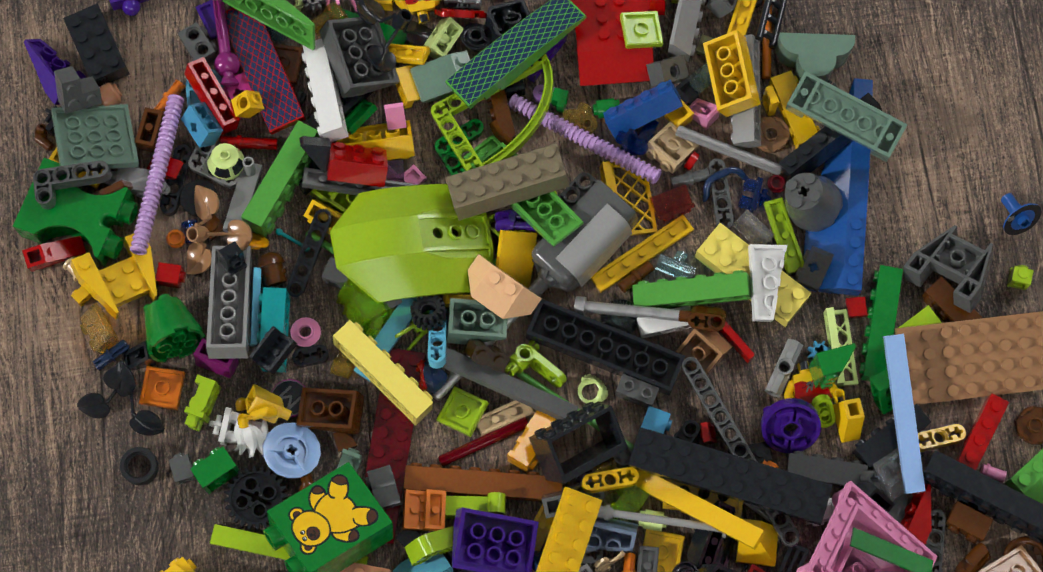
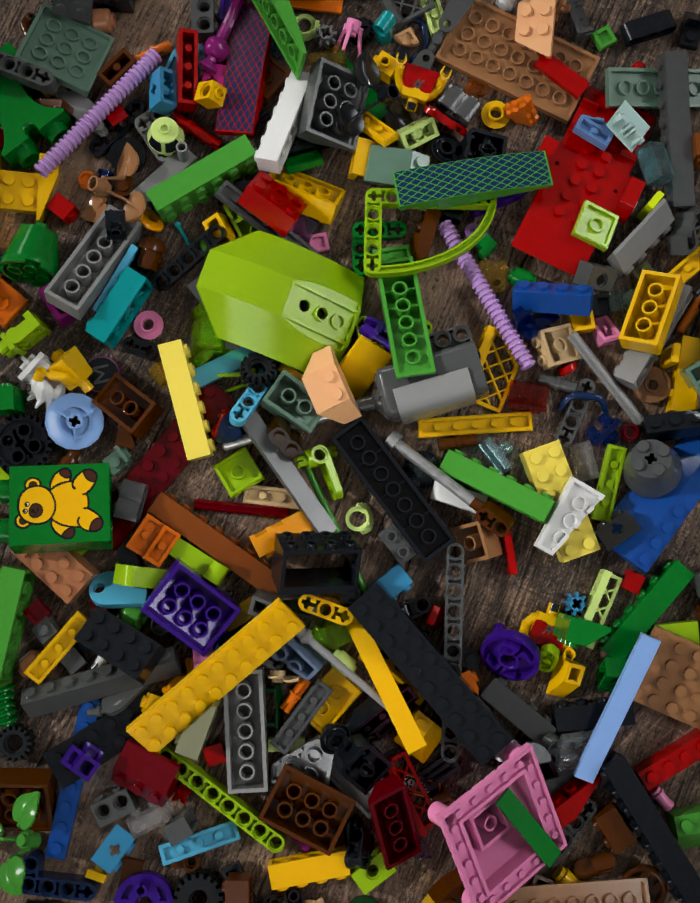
camera: 30 degrees right, 10 degrees up
(273, 350) = (100, 327): black bracket -> none
(317, 149) = (243, 169): black slope -> none
(395, 116) = (333, 179): bright pink slope -> none
(507, 181) = (392, 295): dark tan brick -> none
(779, 378) = (546, 591): light grey piece -> none
(944, 432) = (641, 737): yellow beam -> none

